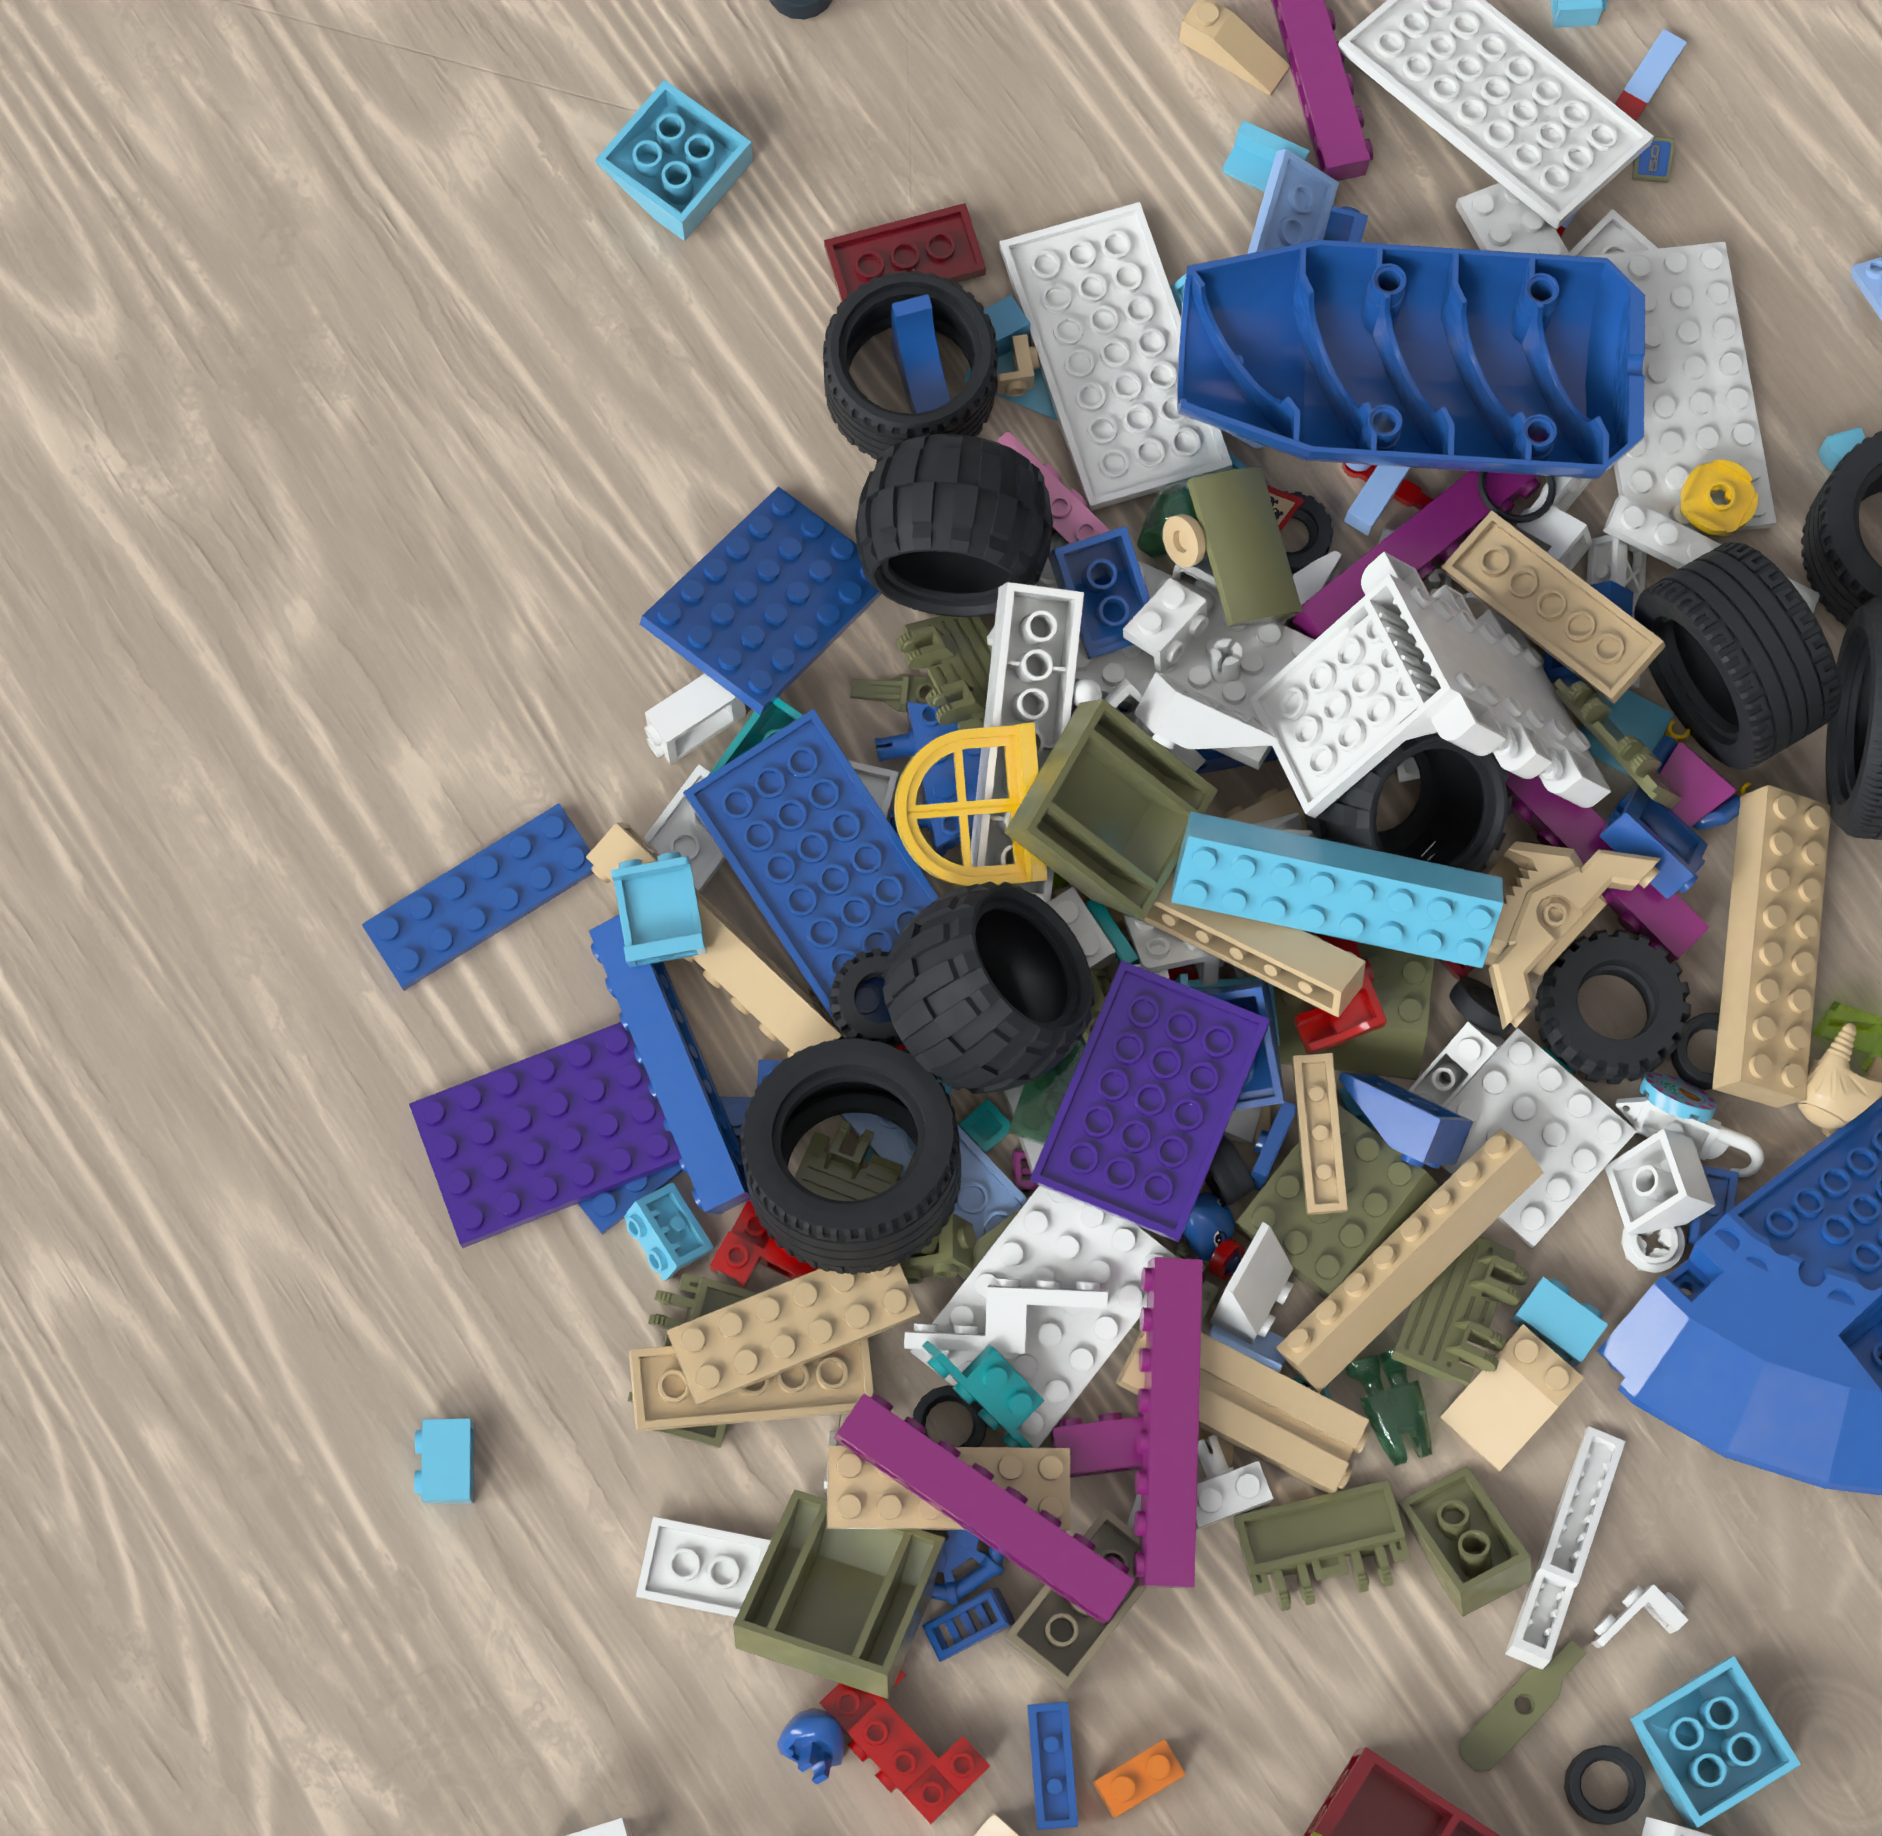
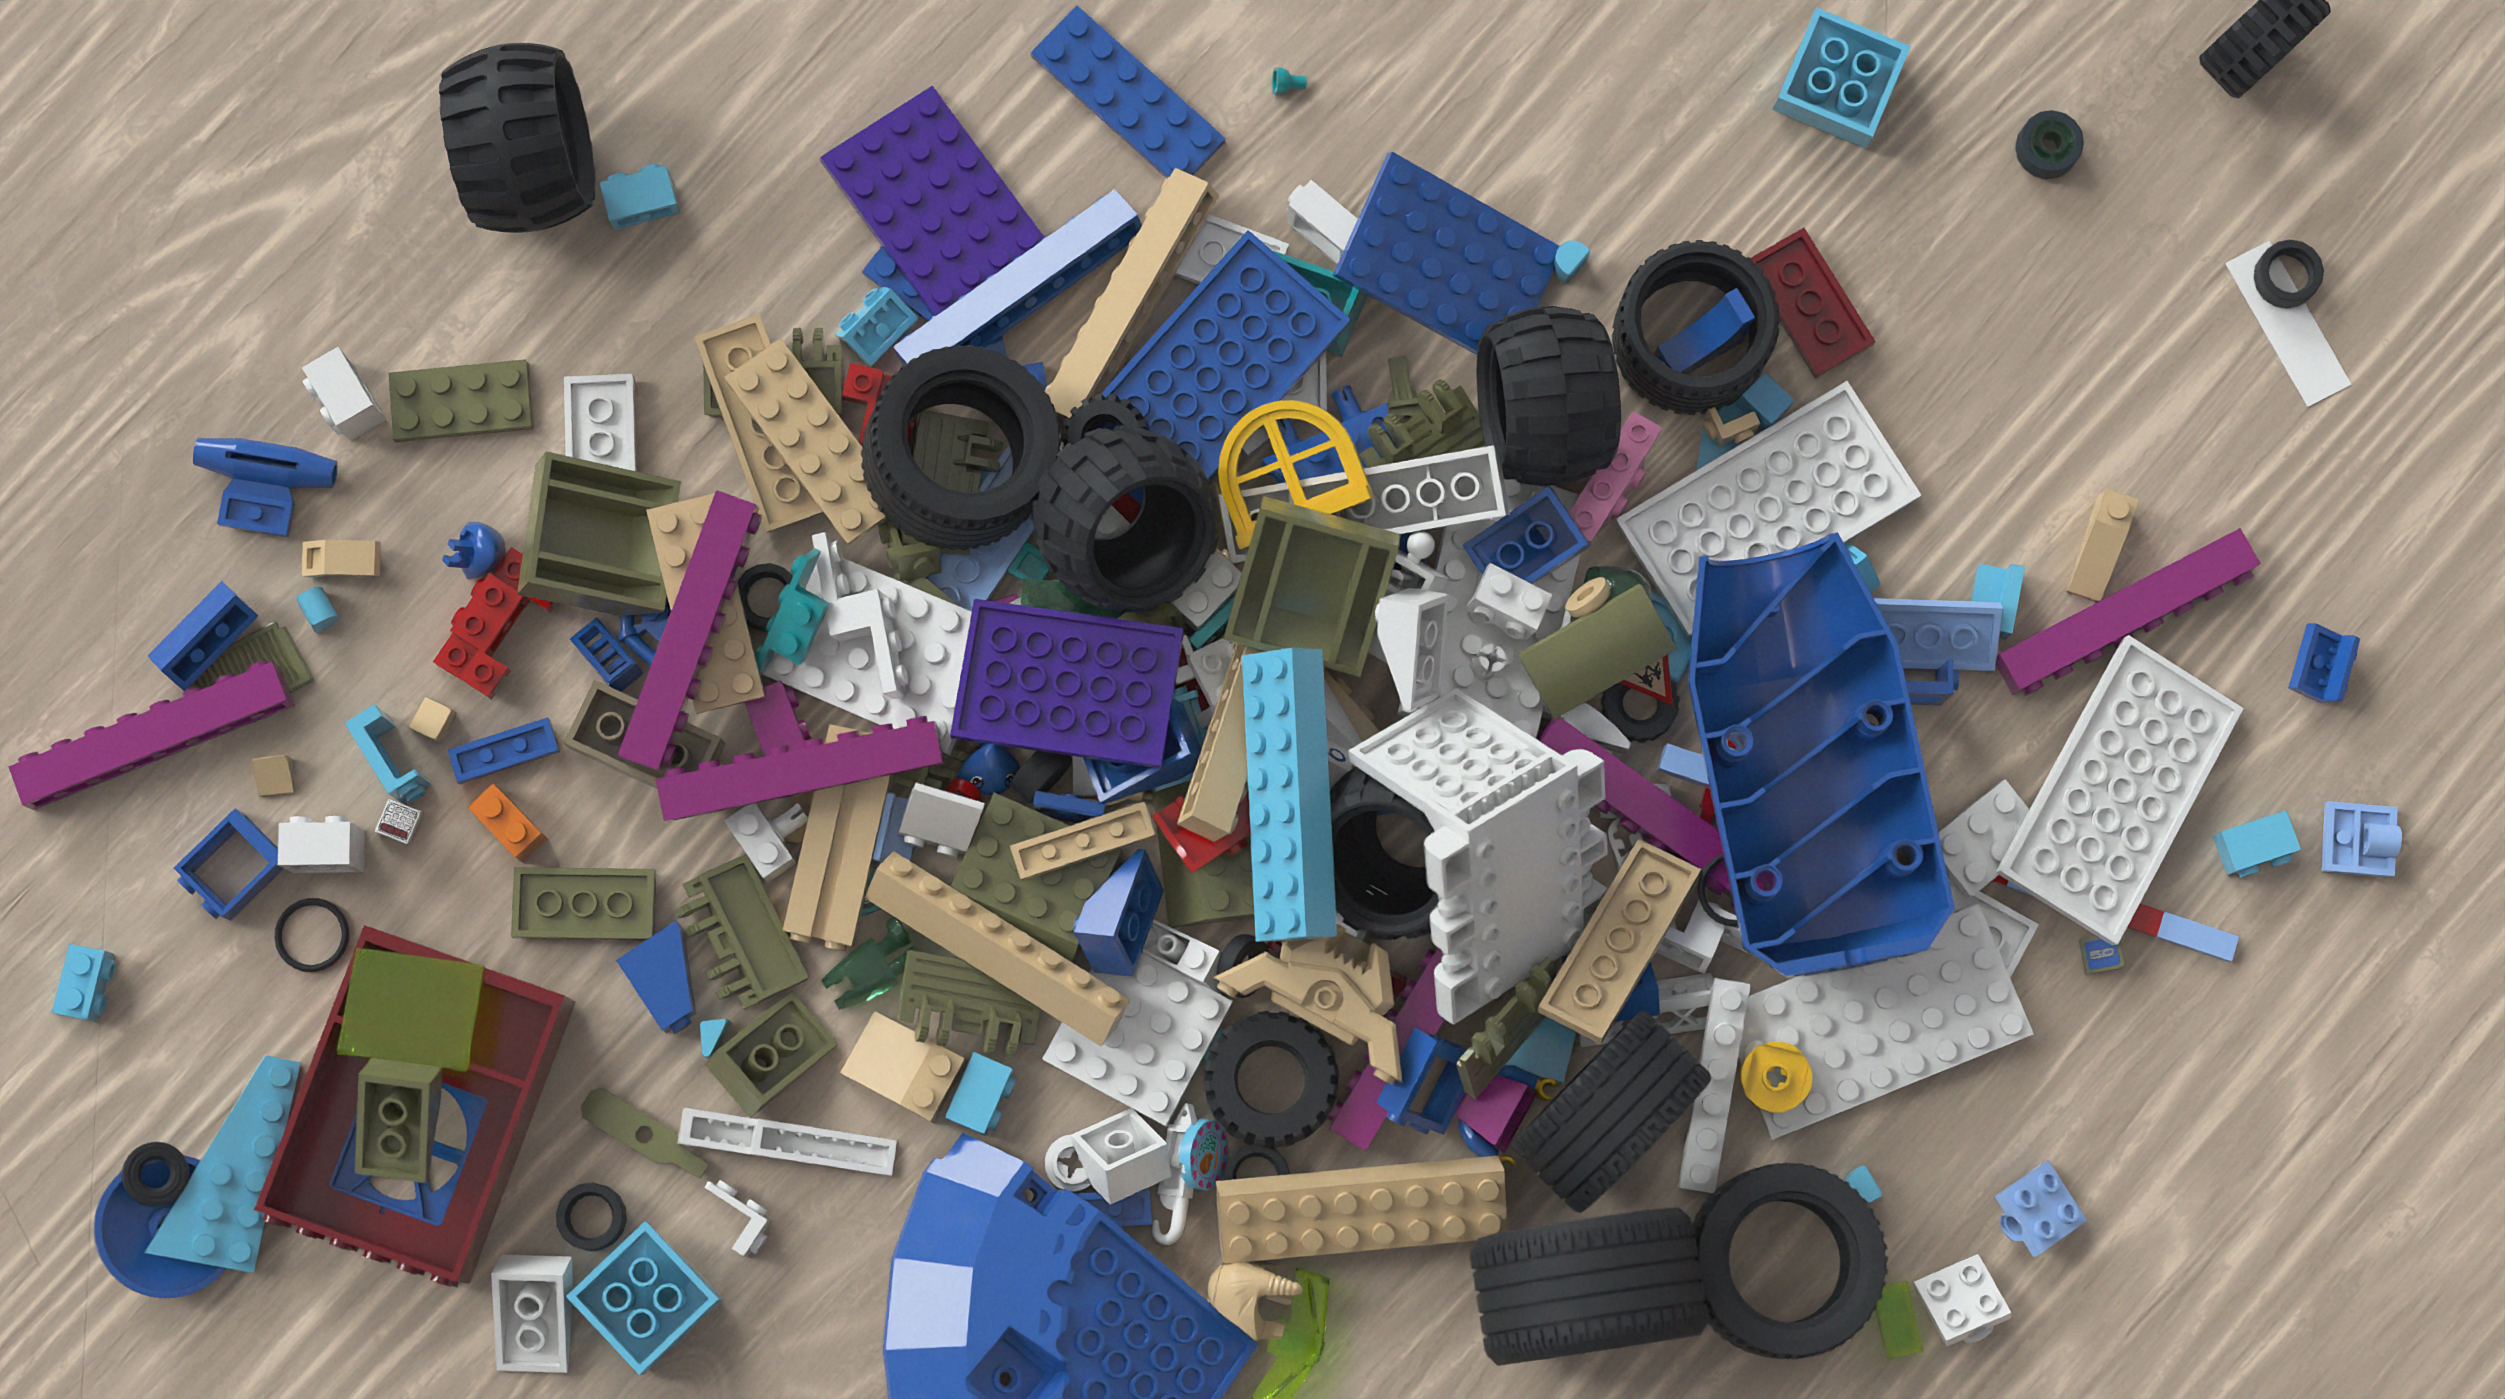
camera: 75 degrees right, 5 degrees up
(355, 1570) = (517, 137): none -> black tyre
(512, 727) = (1283, 81): none -> teal piece
(628, 1725) = (460, 400): none -> olive plate
(658, 910) = (1139, 237): medium azure panel -> none
(796, 481) = (1570, 259): none -> medium azure brick
(1249, 1713) = (583, 903): none -> olive plate
(1354, 1642) = (663, 977): none -> blue slope
(1431, 1601) = (712, 1035): none -> medium azure slope

